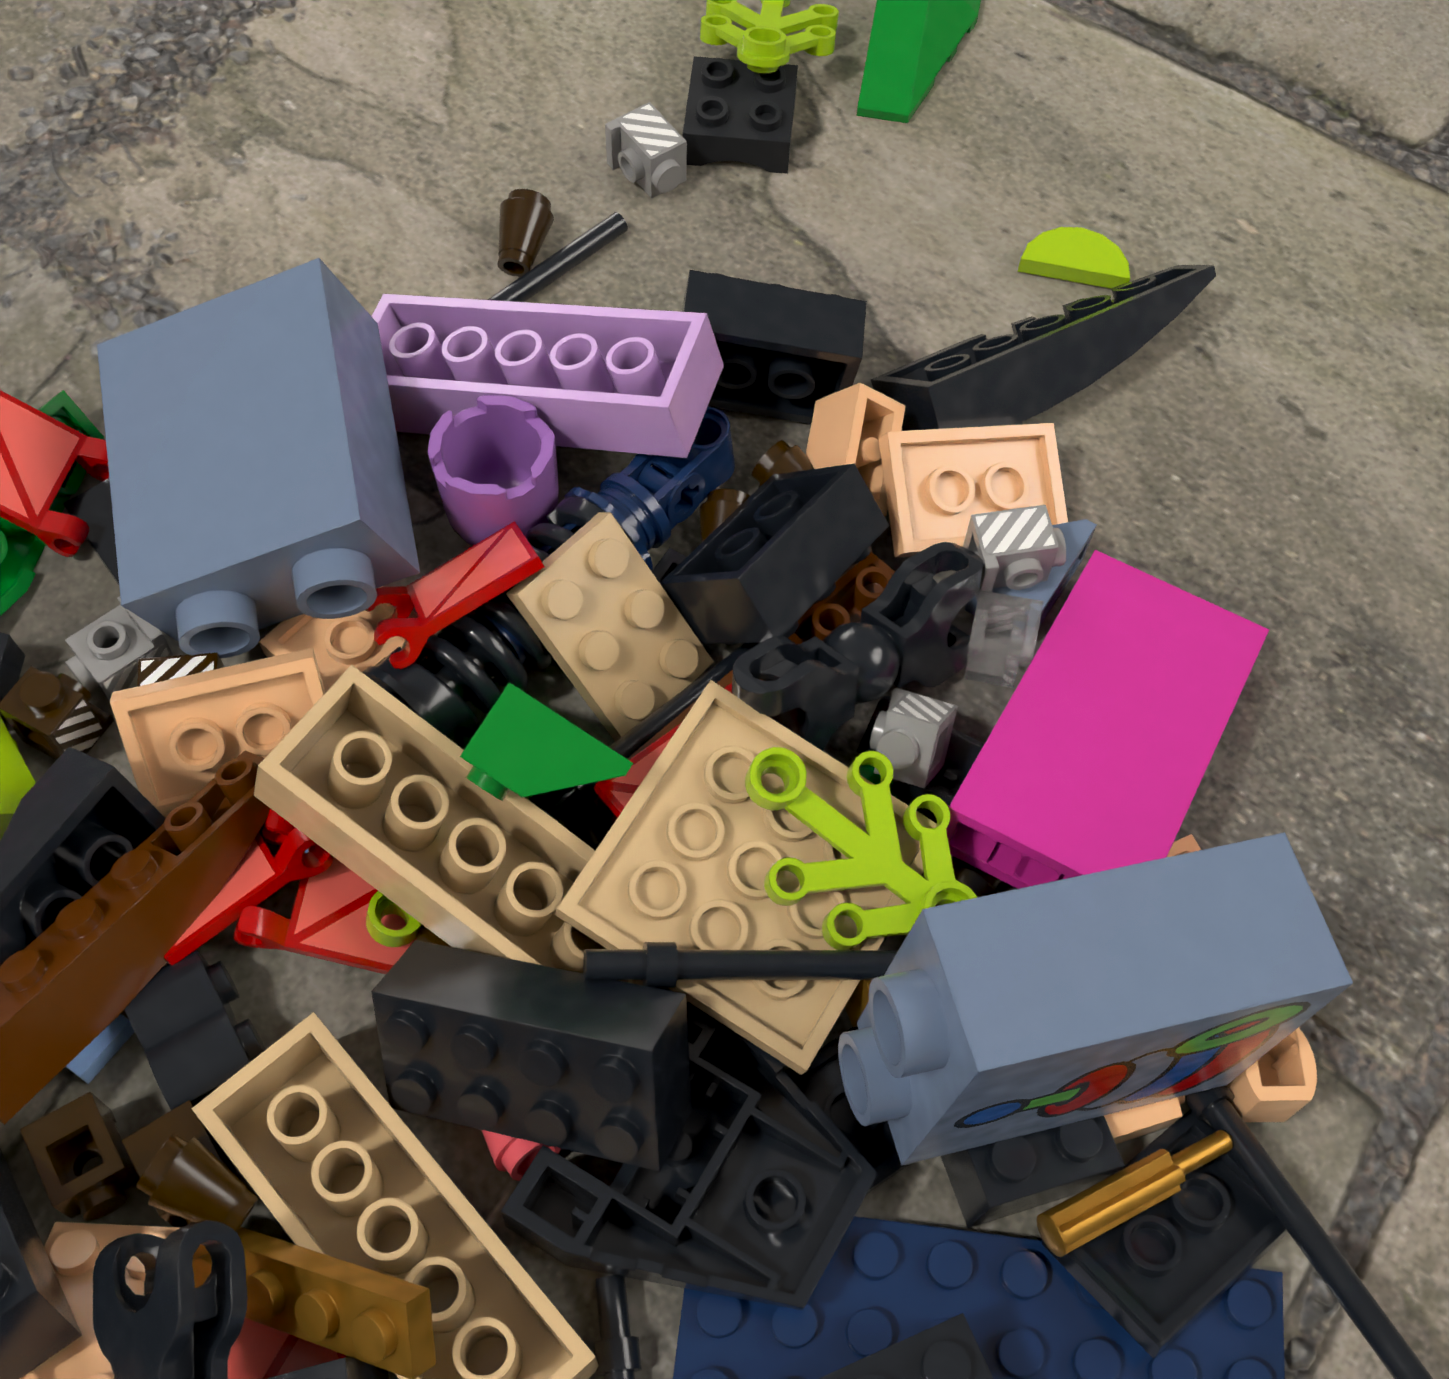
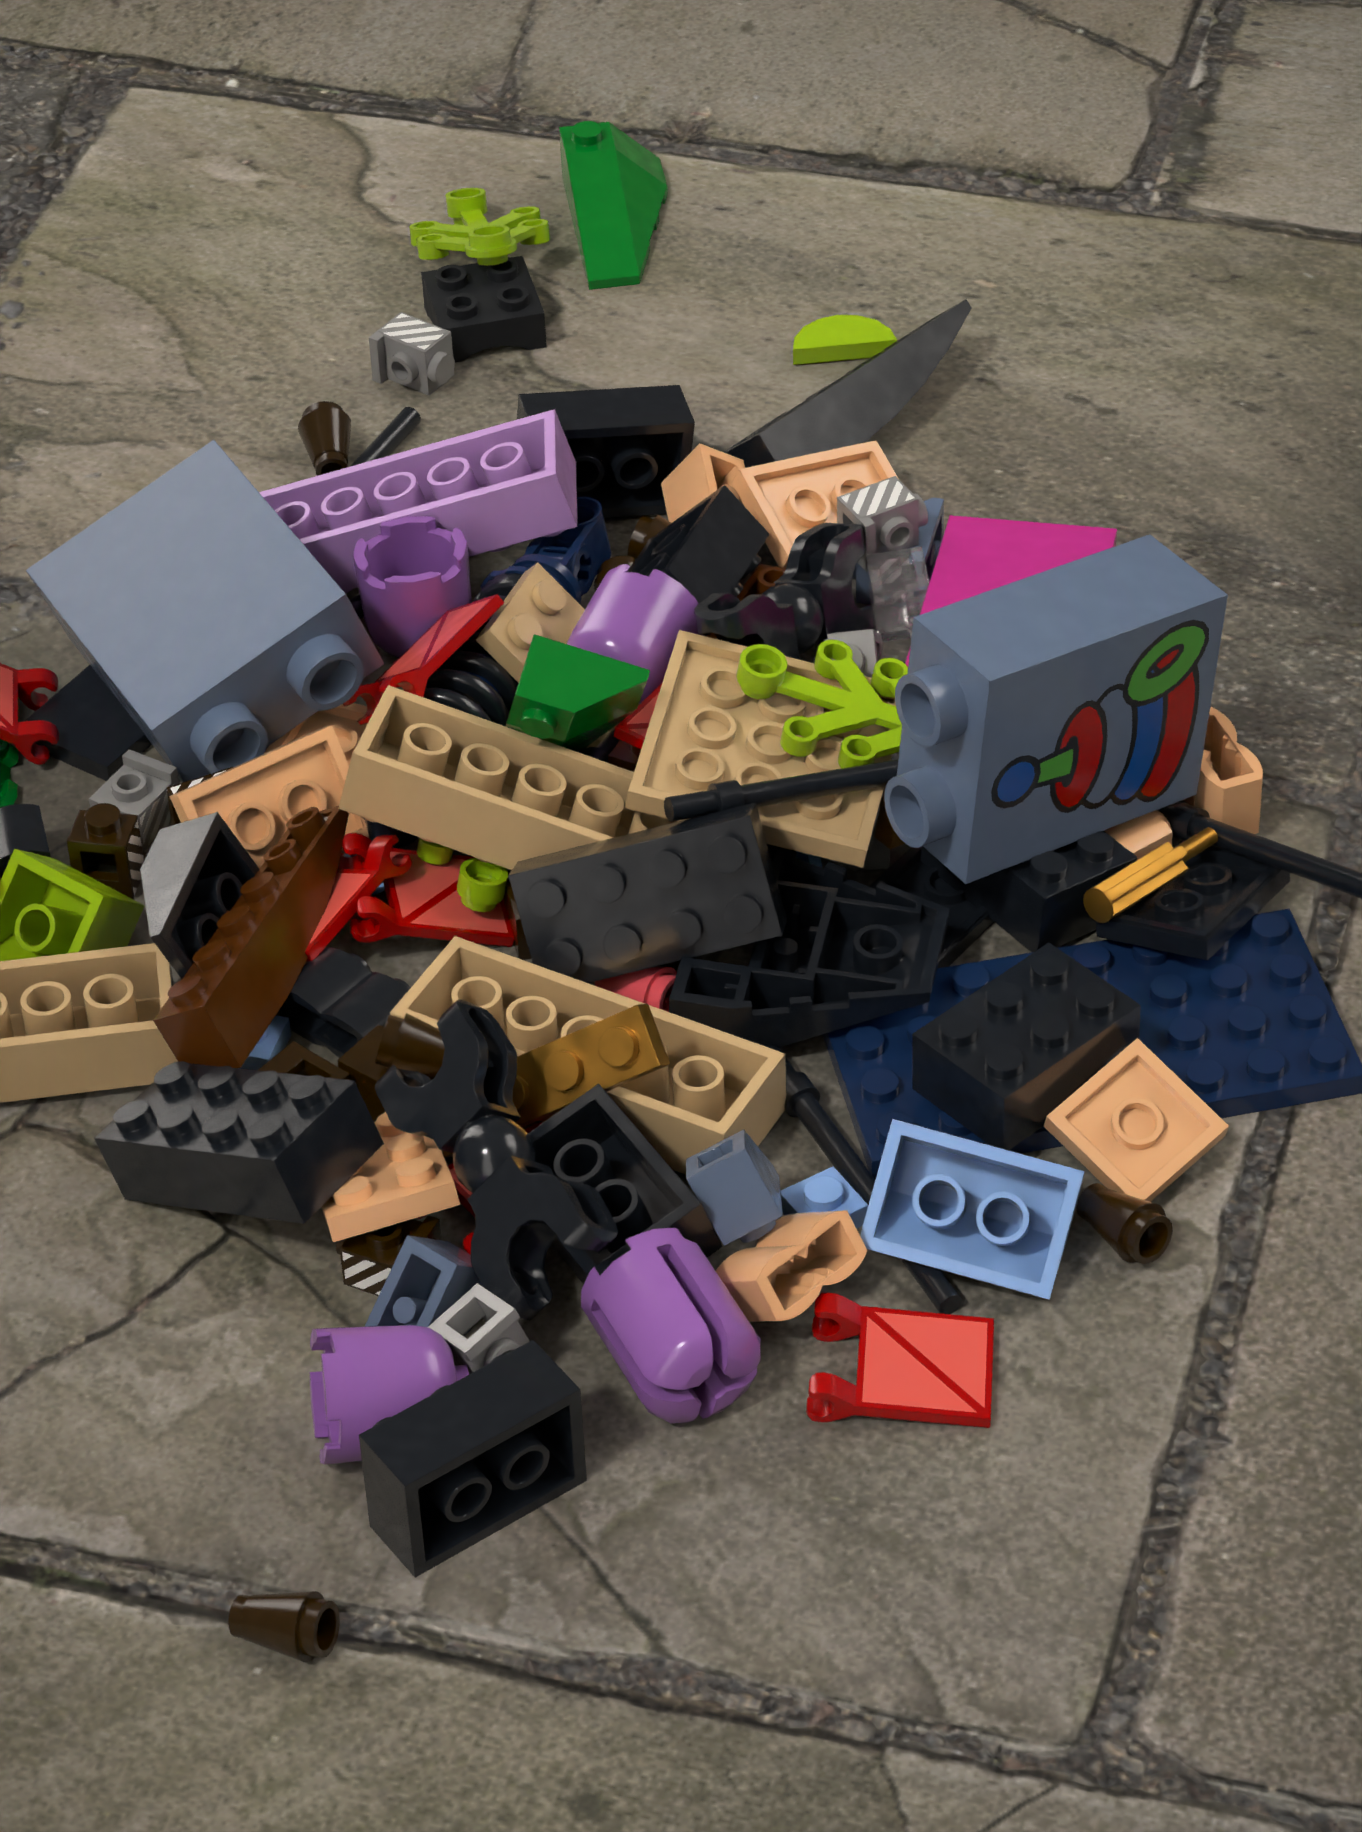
camera: 15 degrees left, 20 degrees down
(666, 649) = (636, 620): none -> medium lavender cylinder

